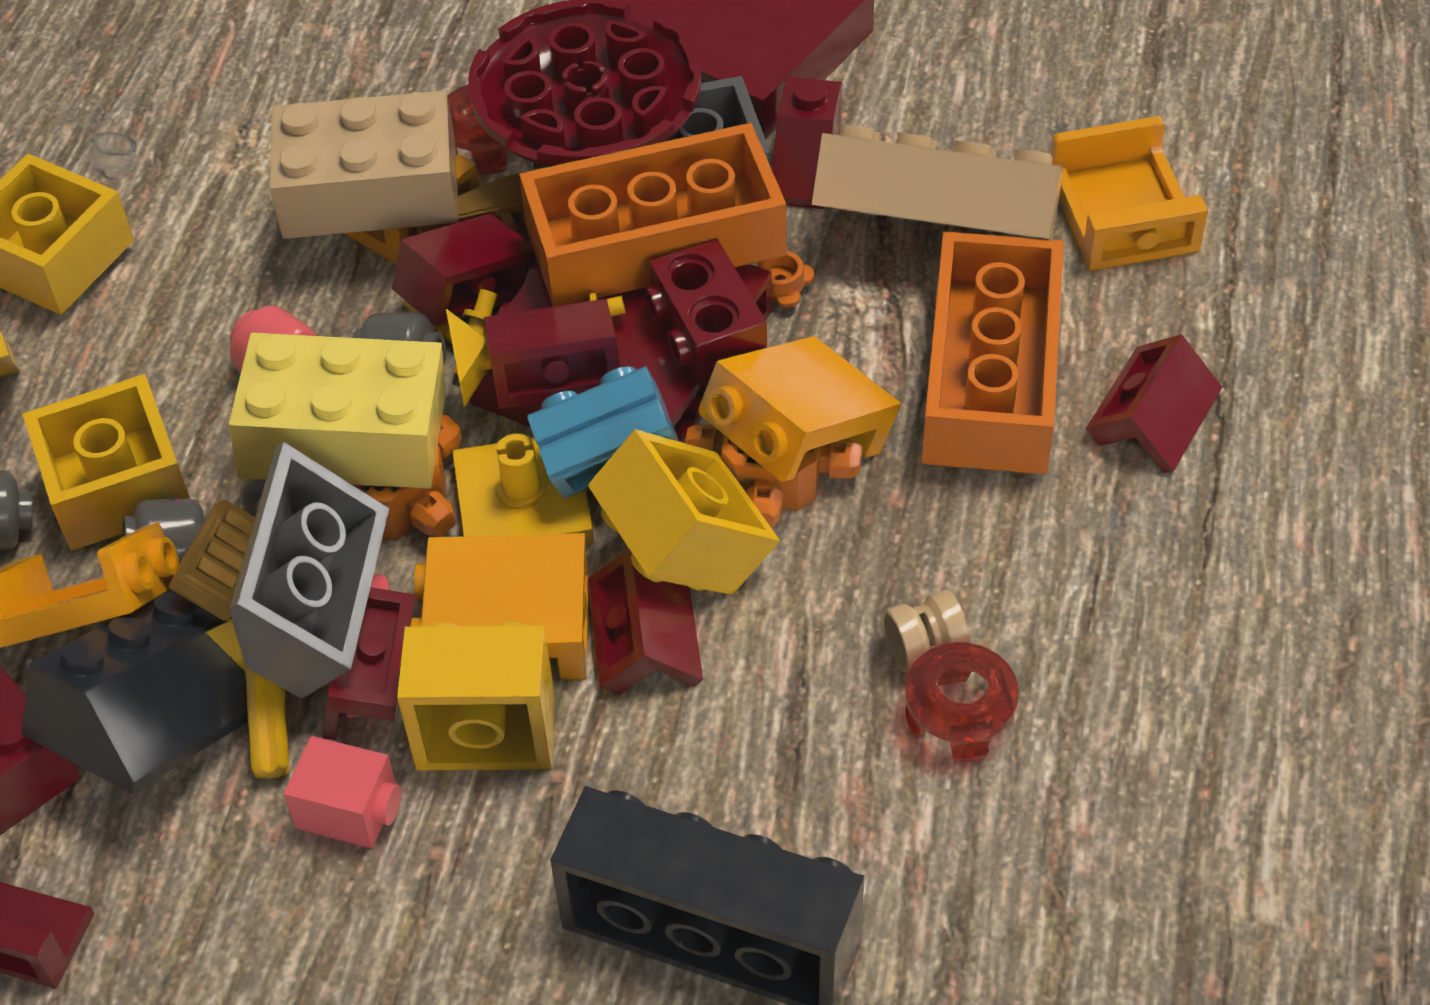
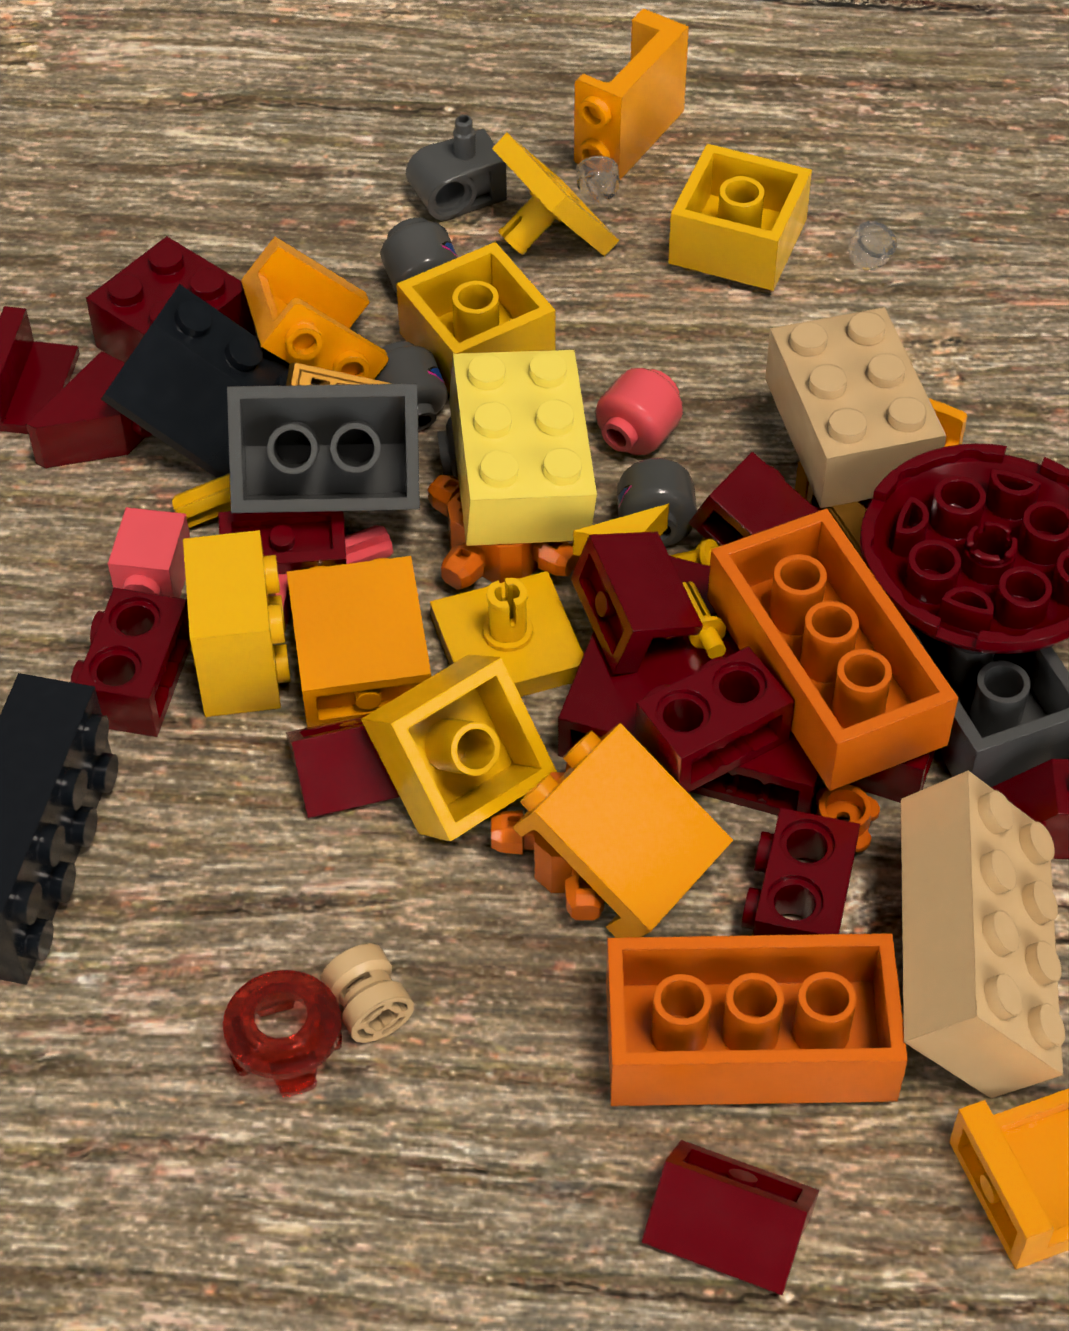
camera: 80 degrees right, 0 degrees up
(100, 839) = (79, 424): none -> dark red slope
(491, 799) = (136, 658): none -> dark red brick
(586, 429) = (546, 659): dark azure brick -> none
(858, 307) = (805, 889): none -> dark red brick

